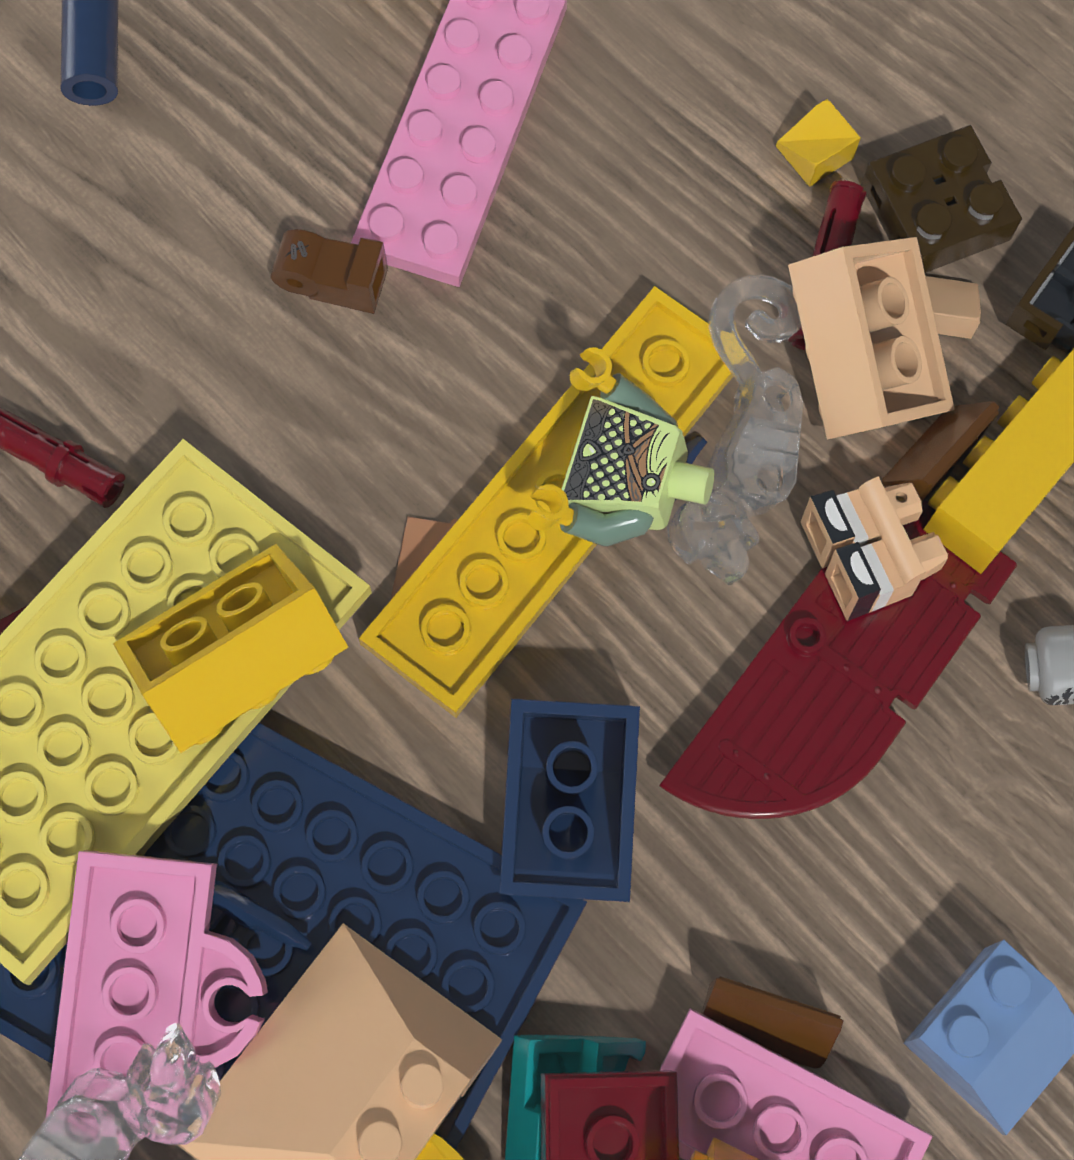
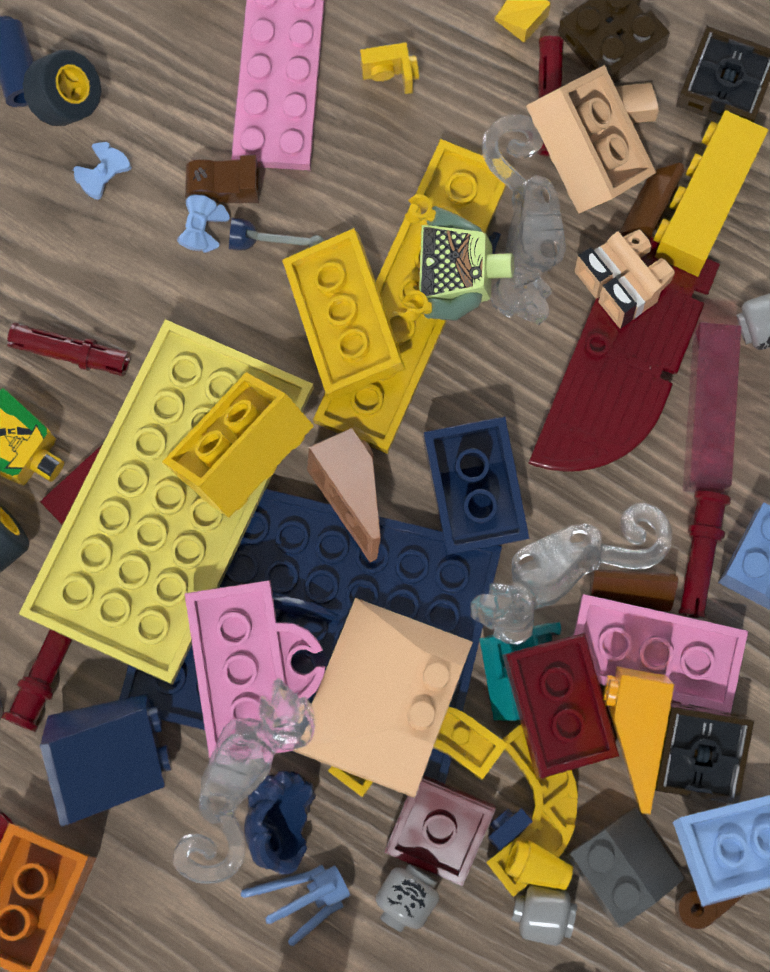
camera: 10 degrees left, 5 degrees up
(156, 72) = (62, 88): none -> black wheel
(184, 208) = (111, 163): none -> light blue piece
(286, 303) = (200, 211): none -> light blue piece
(338, 351) = (244, 235): none -> hinge
(380, 736) = (347, 479): none -> nougat slope
(444, 499) = (343, 314): none -> yellow plate
(608, 163) = (387, 61): none -> yellow bracket
(666, 956) = (560, 565): none -> clear animal
(901, 963) = (705, 535): none -> dark red pin
(956, 776) = (712, 408): none -> clear pink brick

